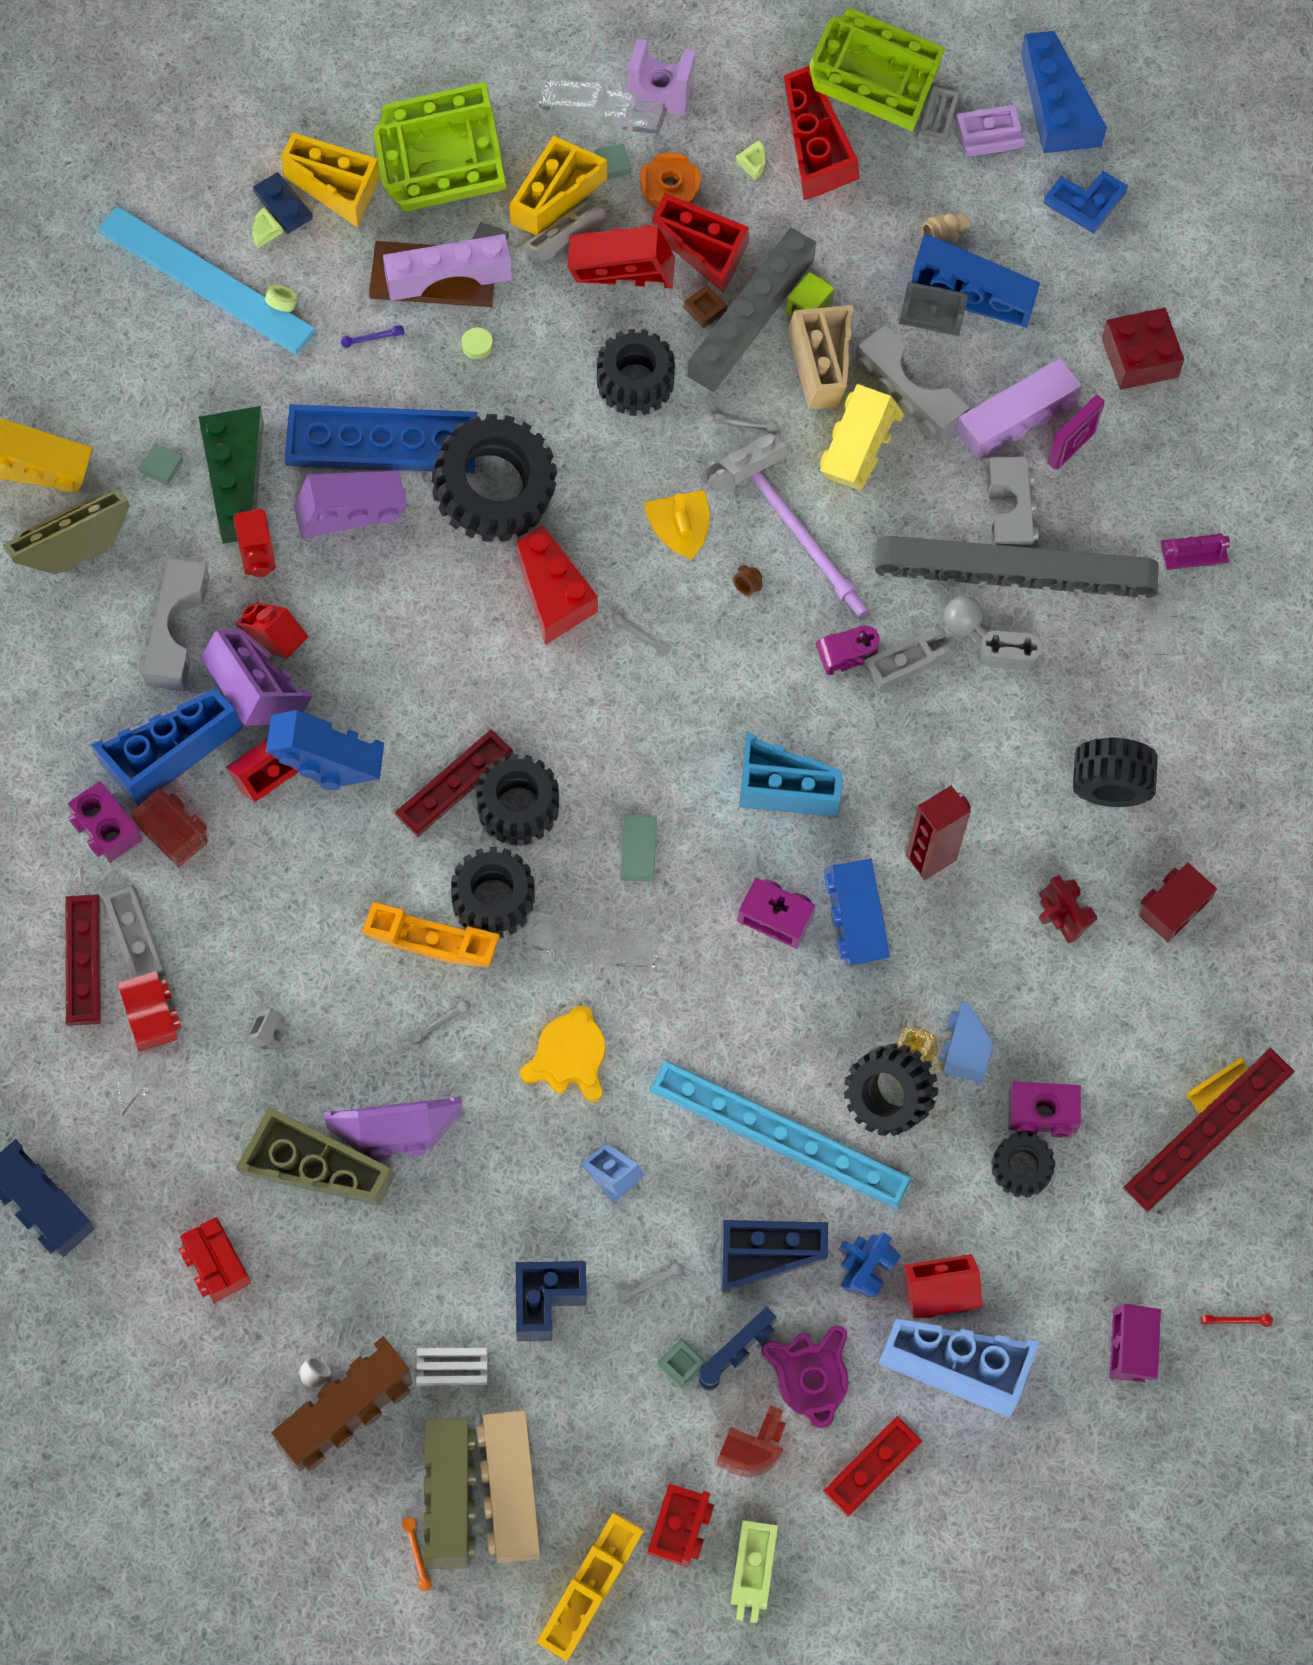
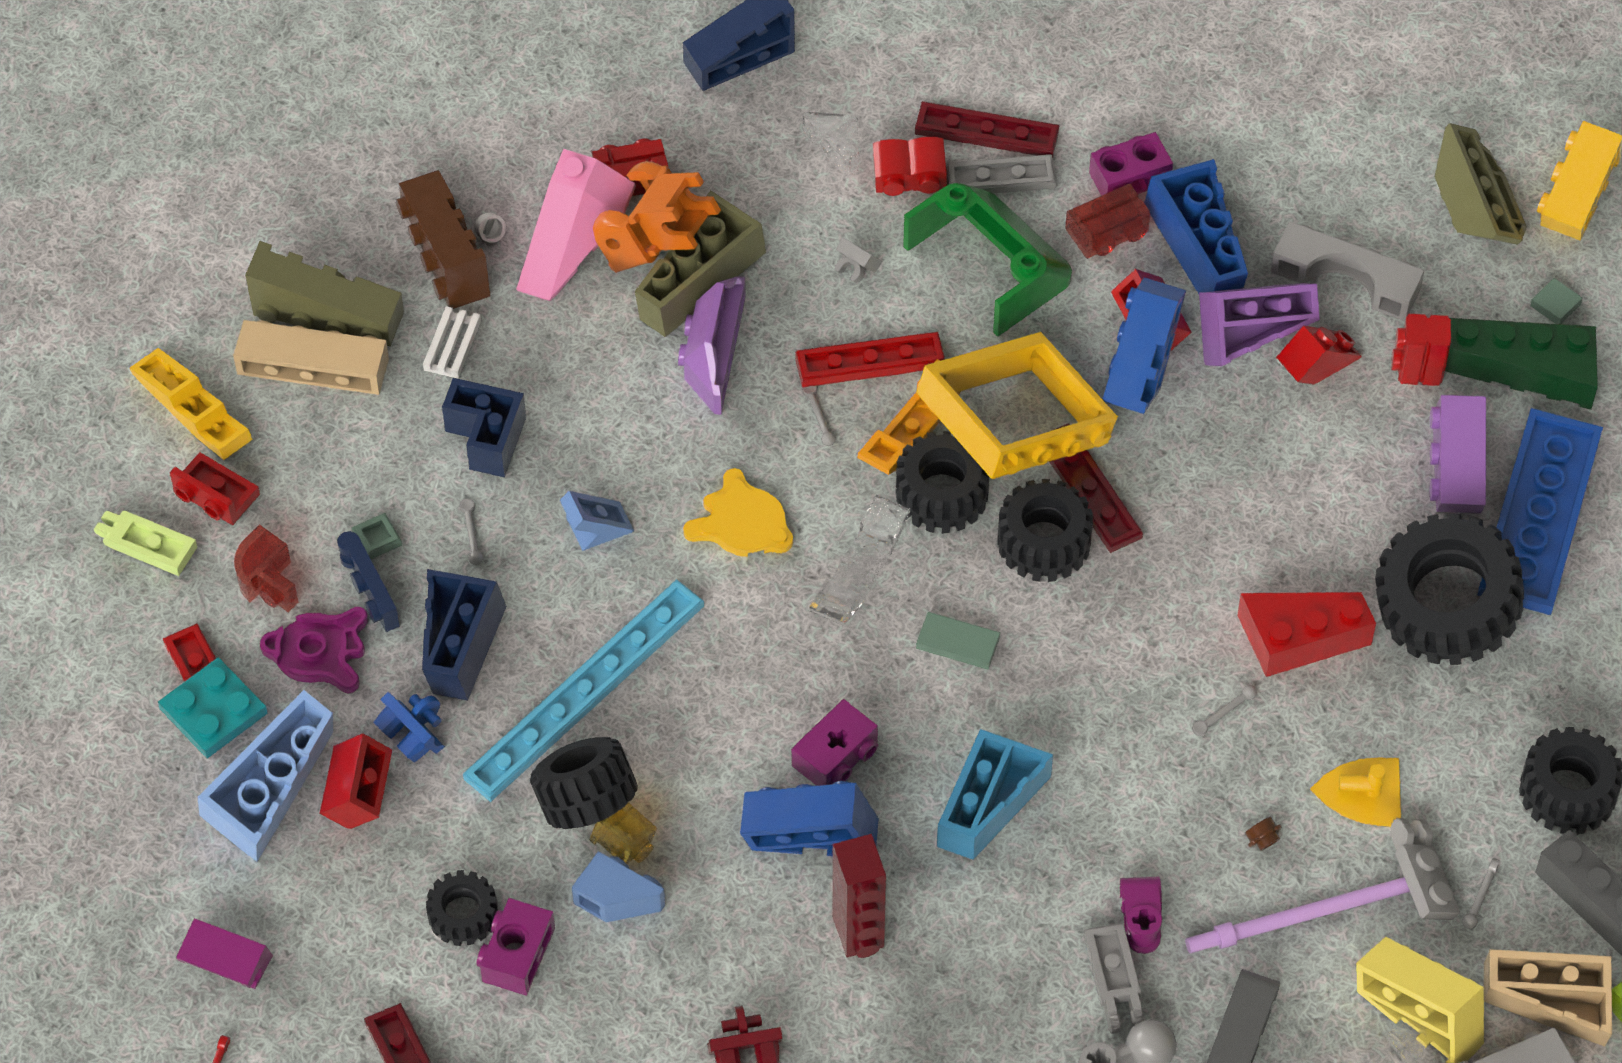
camera: 110 degrees right, 10 degrees down
(187, 932) = (1033, 261): none -> green windscreen
(284, 1206) = (661, 220): none -> orange piece
(294, 1286) = (564, 229): none -> bright pink wedge
(370, 809) = (1032, 352): none -> yellow window
(371, 992) = (868, 359): none -> red tile
(908, 1439) = (212, 707): none -> teal plate

